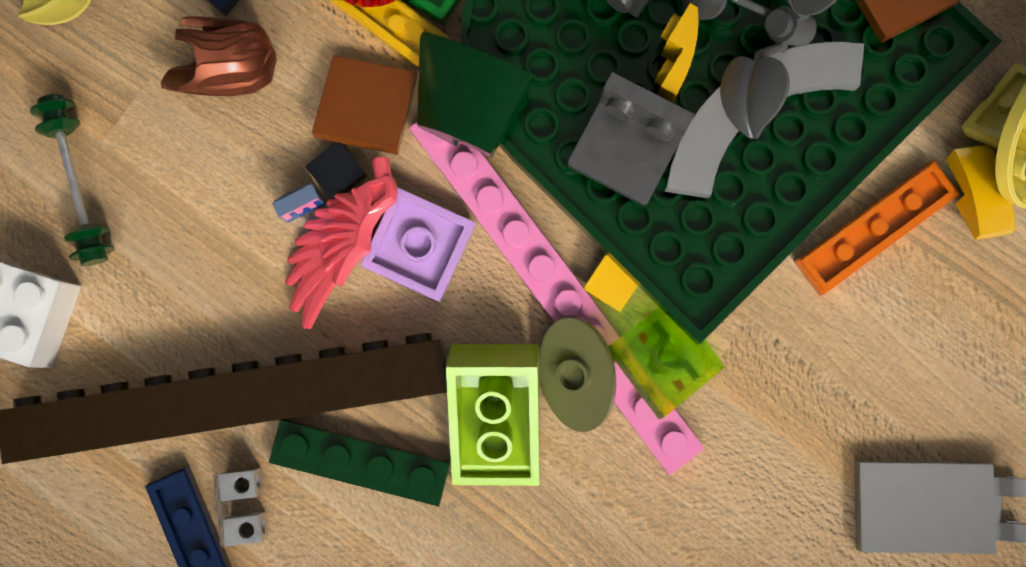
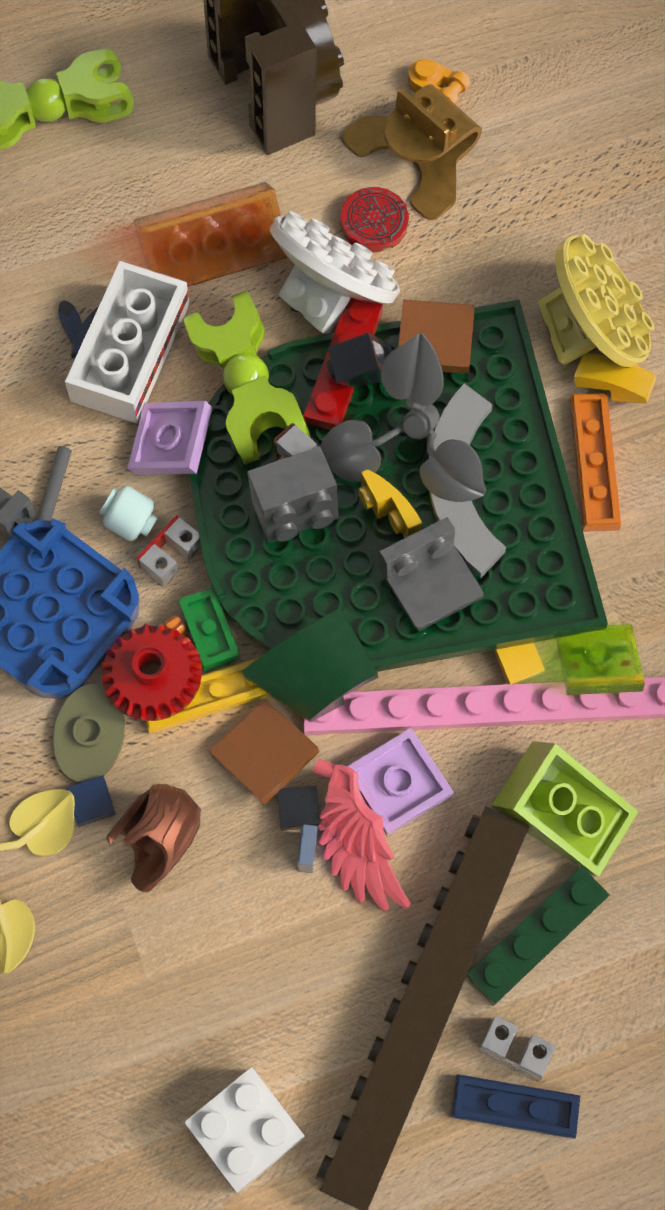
camera: 60 degrees left, 15 degrees down
(57, 124) = (114, 998): dark green axle -> none
(577, 373) = (575, 725): olive piece -> none

